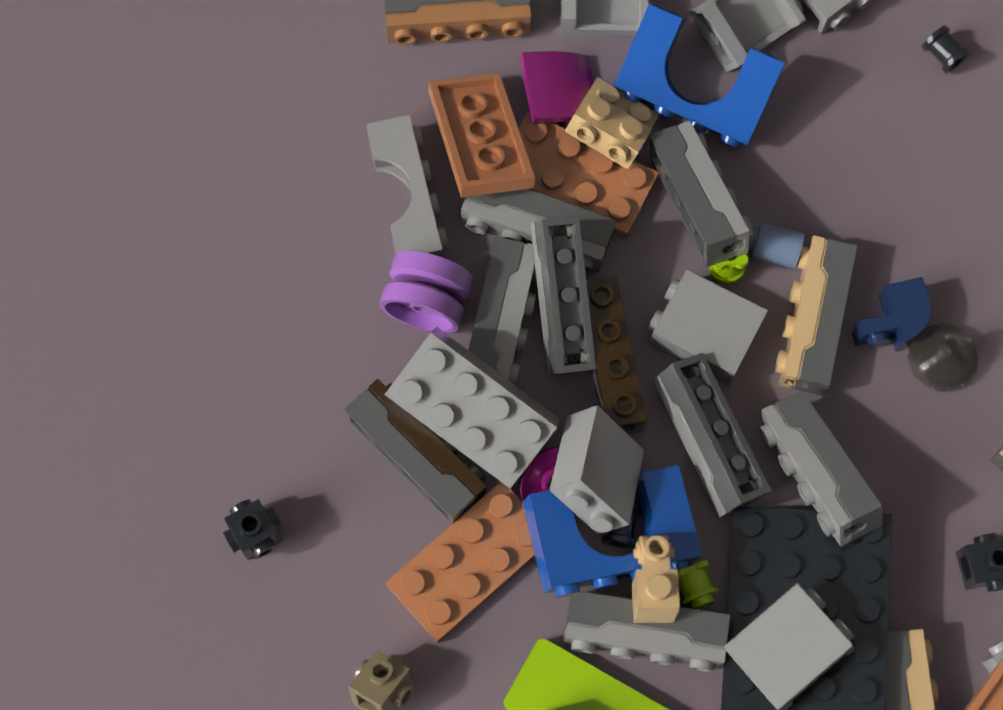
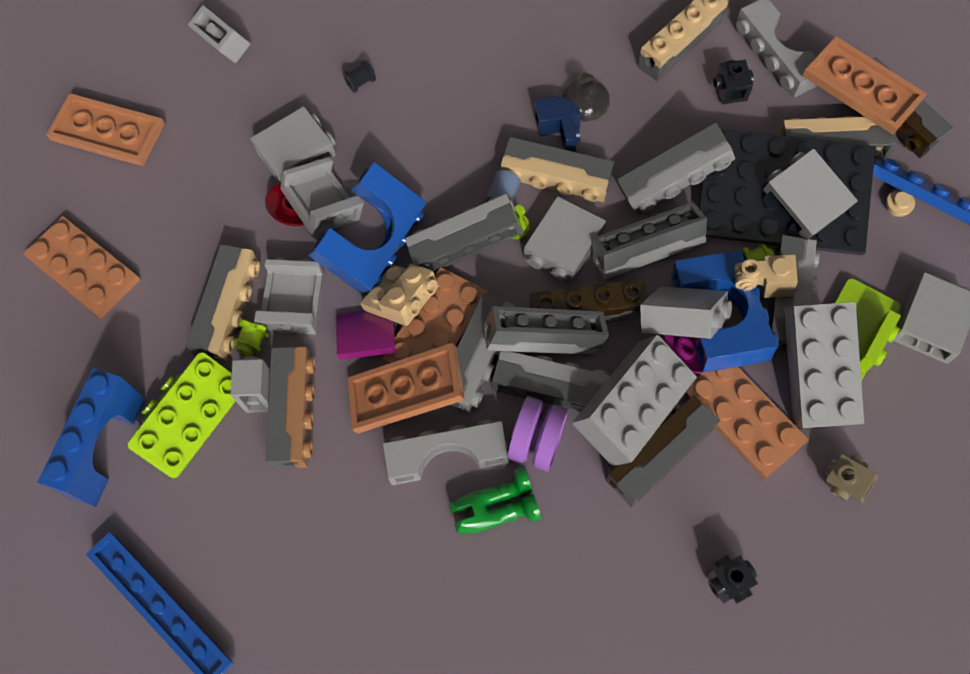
camera: 80 degrees left, 5 degrees down
(346, 234) = (485, 497): none -> green piece
(532, 651) = (824, 365): none -> light grey brick

